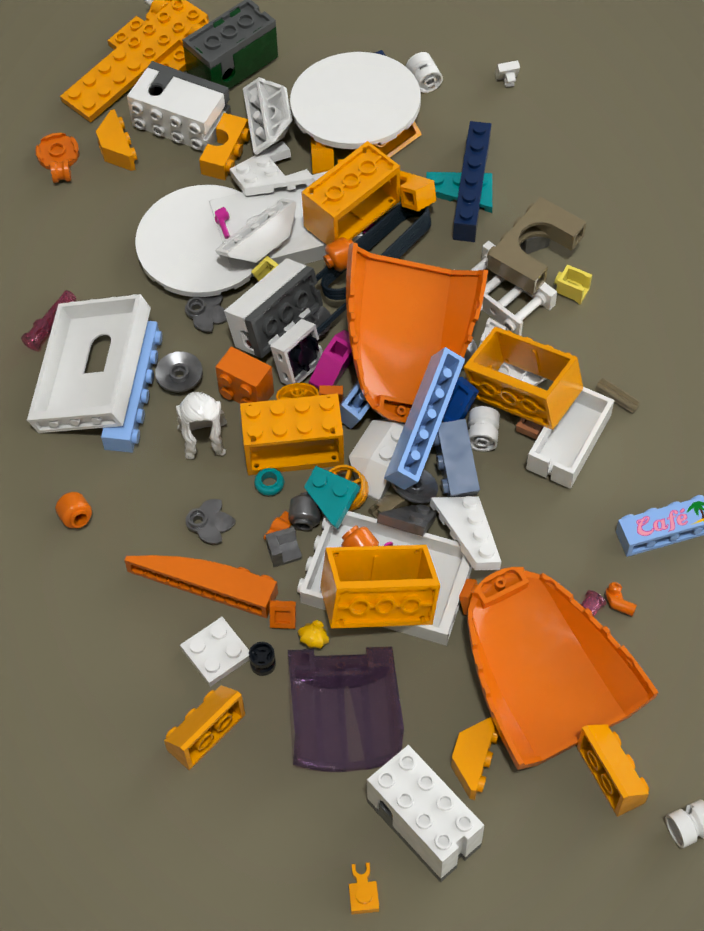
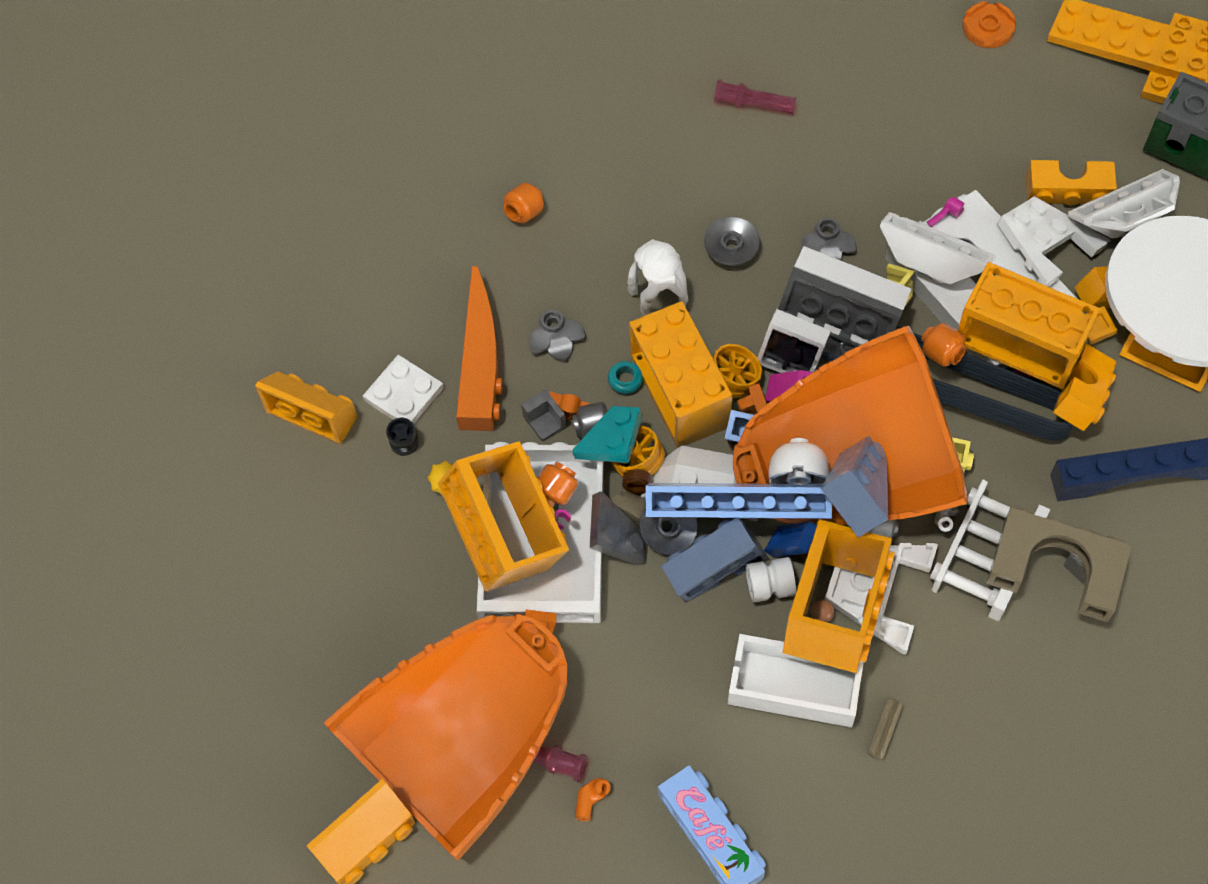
camera: 75 degrees right, 5 degrees up
(60, 171) = (957, 35): orange wheel -> none
(80, 400) = (660, 150): white panel -> none
(115, 143) = (1025, 70): light orange slope -> none
(126, 436) = (698, 201): light blue brick -> none
(178, 105) = (1100, 111): white piece -> none
(180, 241) = (909, 178): white tile -> none
(244, 377) = (736, 305): orange brick -> none
(283, 614) = (461, 440): orange tile -> none
(344, 710) = (360, 527): clear purple windscreen -> none
(363, 893) = (167, 616): light orange plate -> none
(370, 494) = (636, 480): none -> reddish brown tile
(410, 368) = (798, 464): none -> white cylinder
(424, 812) = (252, 643): white piece -> none
(446, 330) = (860, 486): none -> sand blue wedge
(448, 185) = (1126, 434): teal wing -> none
(470, 528) = (626, 596): white wing -> none
(473, 754) = (335, 680): light orange slope -> none
(573, 283) = (1034, 618): light yellow window -> none

